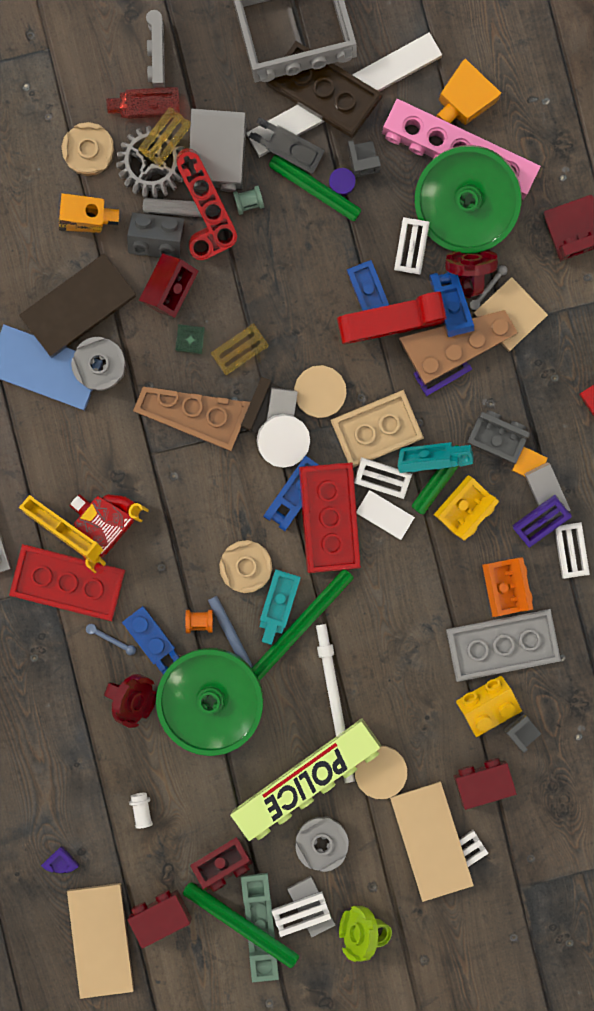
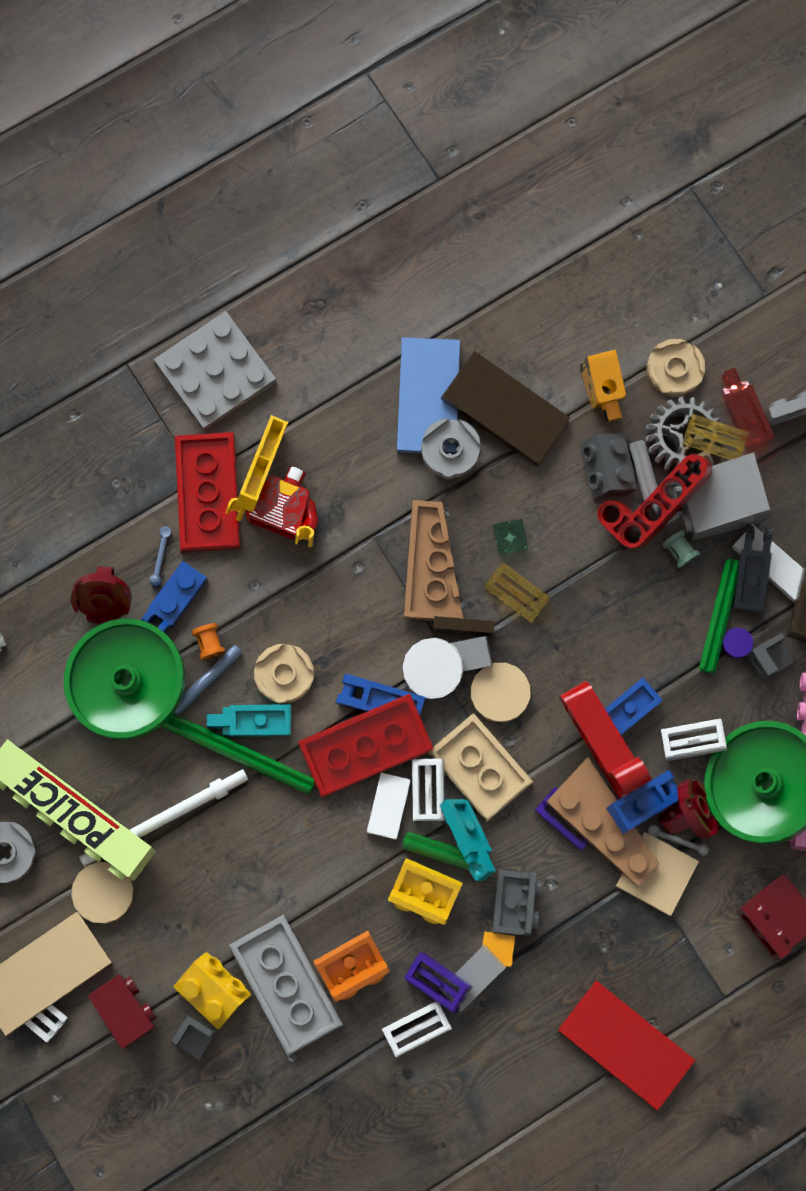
camera: 70 degrees right, 10 degrees down
(168, 285) = (559, 493): dark red brick -> none

